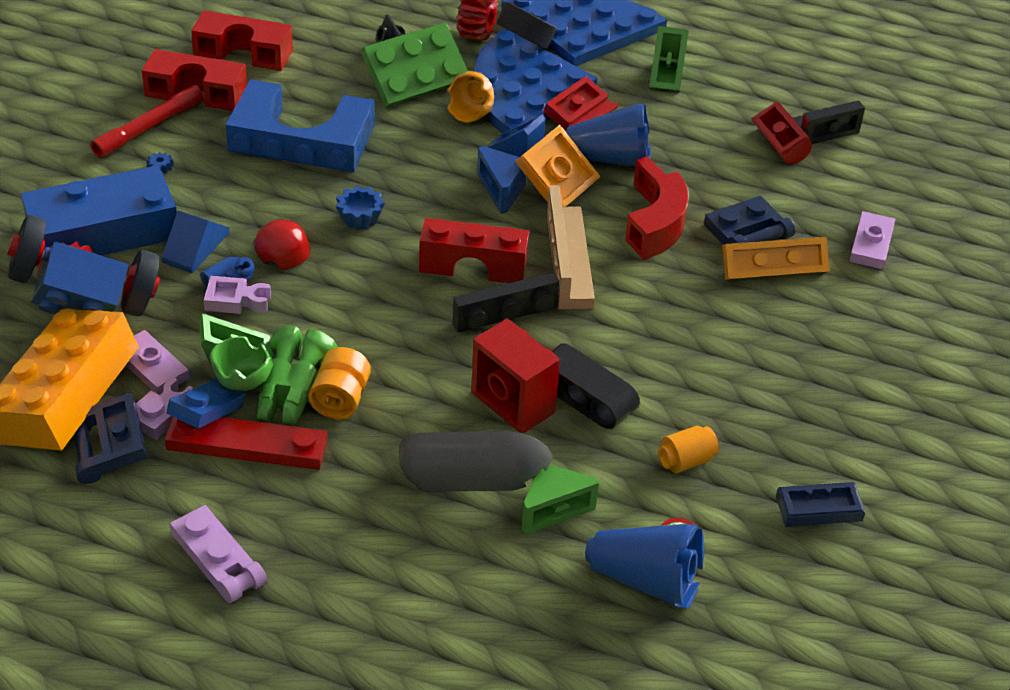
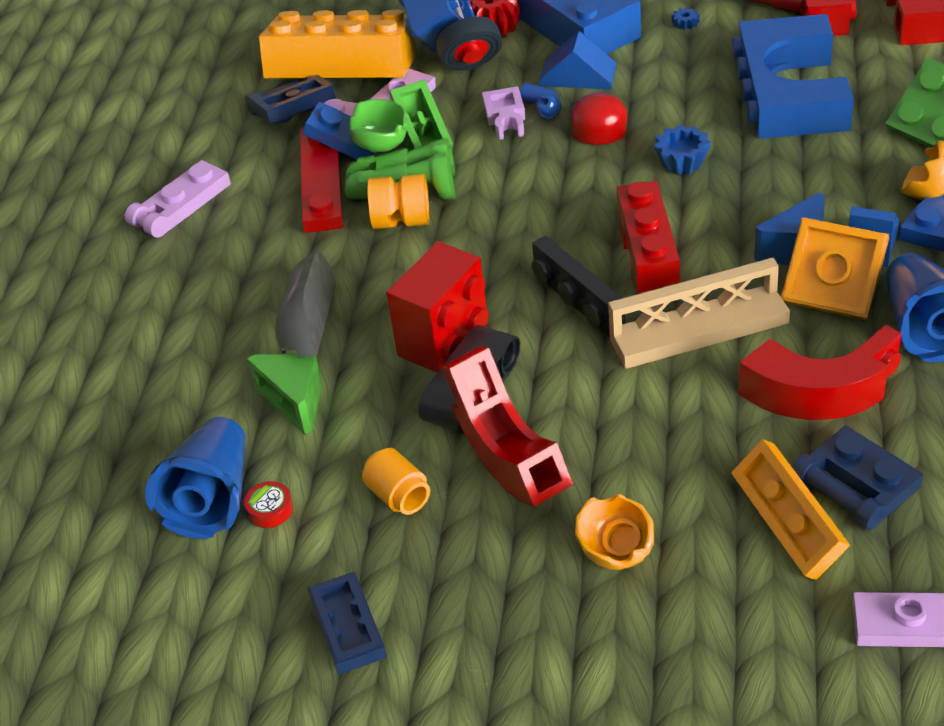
camera: 85 degrees right, 0 degrees up
(675, 377) = (513, 454): none -> red arch
(779, 341) = (614, 532): none -> light orange hair

